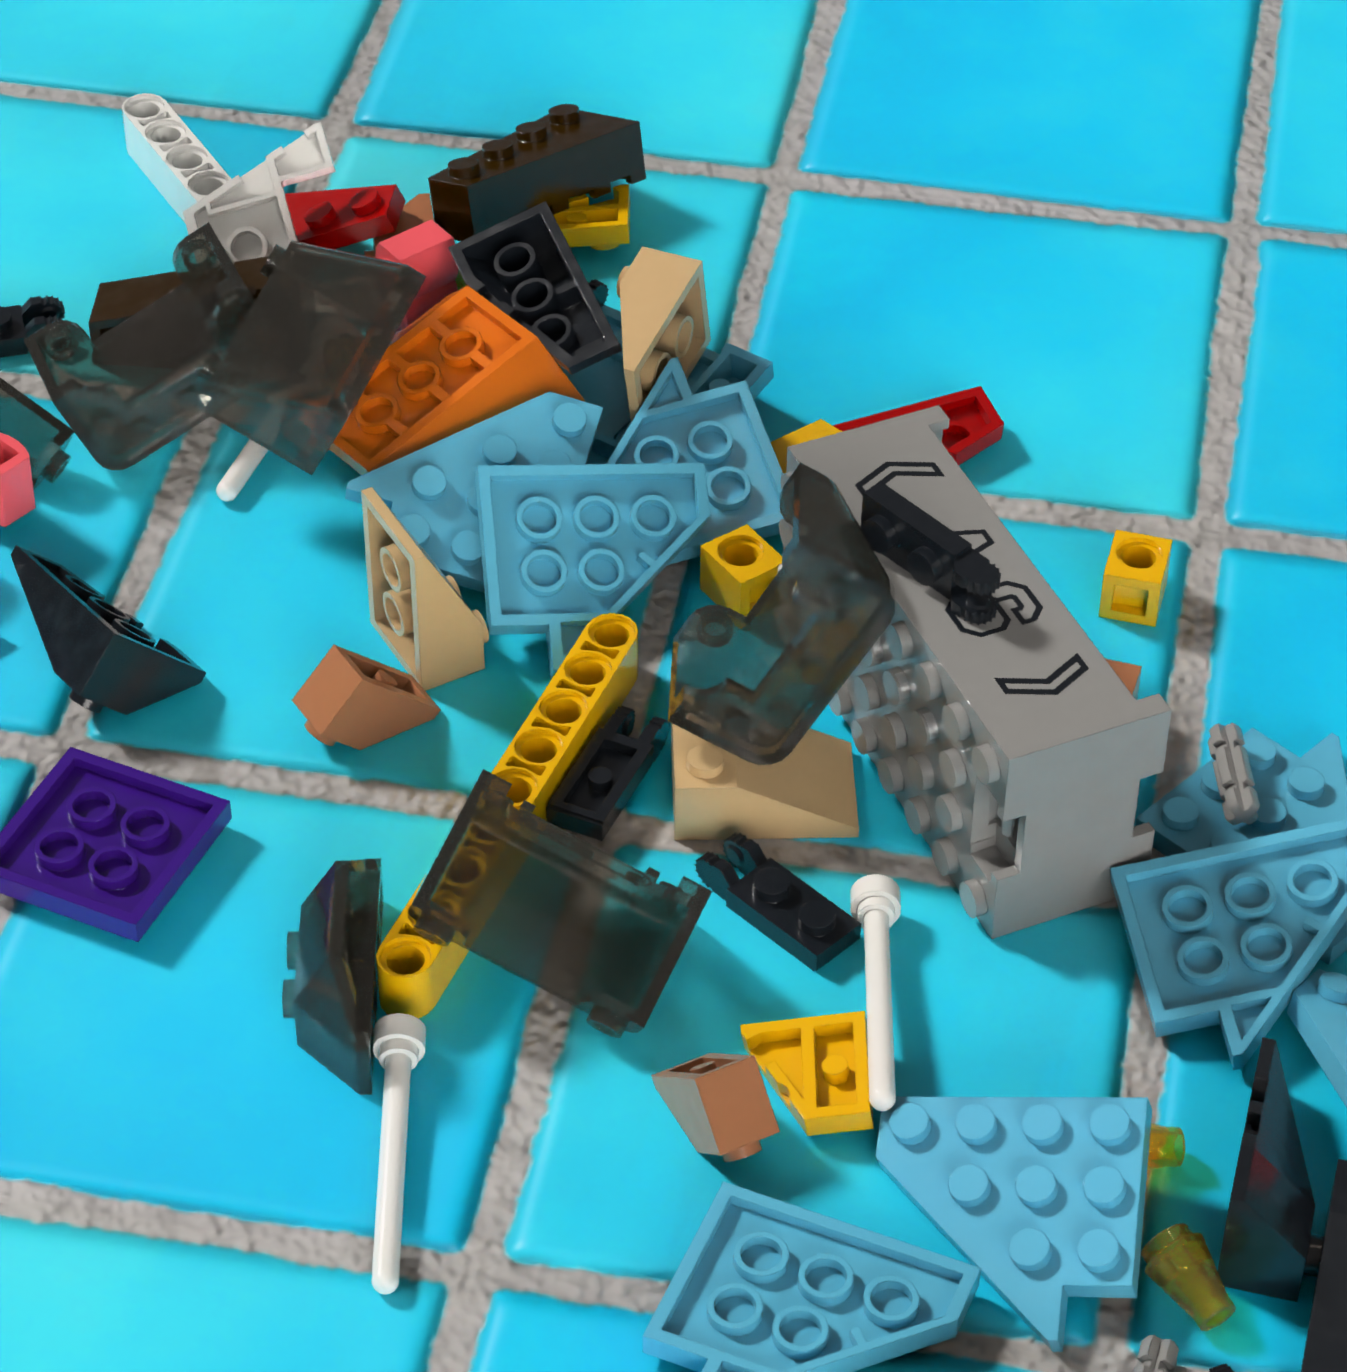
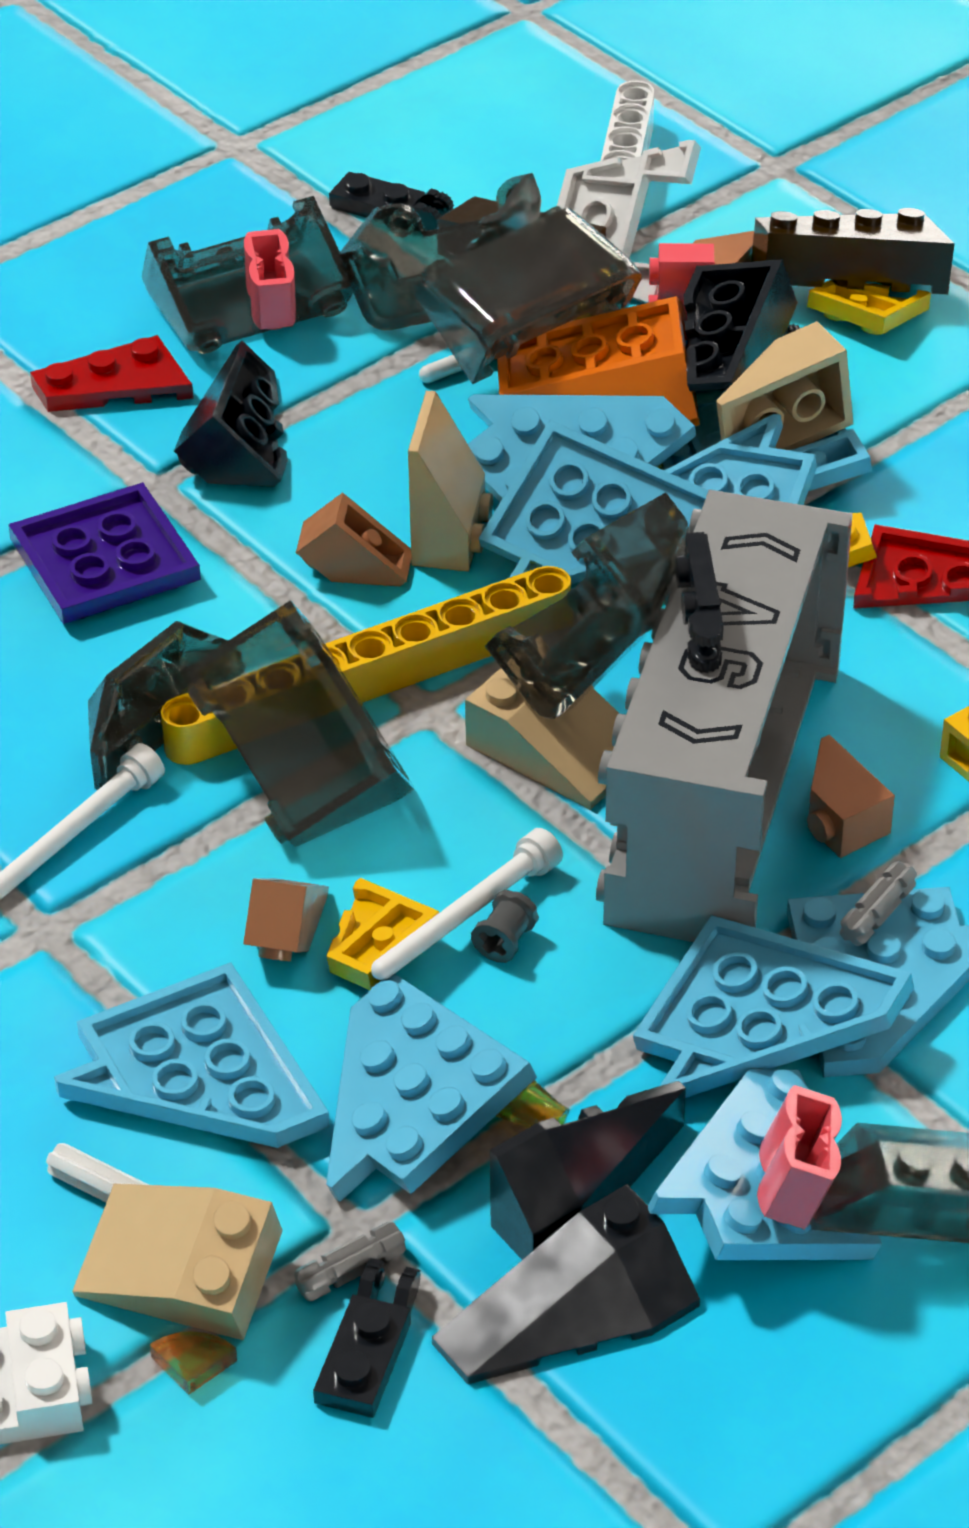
camera: 40 degrees right, 0 degrees up
(345, 215) = (681, 221): red wing -> none
(606, 775) = (443, 678): black hinge -> none
(778, 902) = (479, 820): black hinge -> none
(930, 999) = (510, 918): none -> dark grey bush
(1187, 1274) = (463, 1203): clear yellow cone -> none

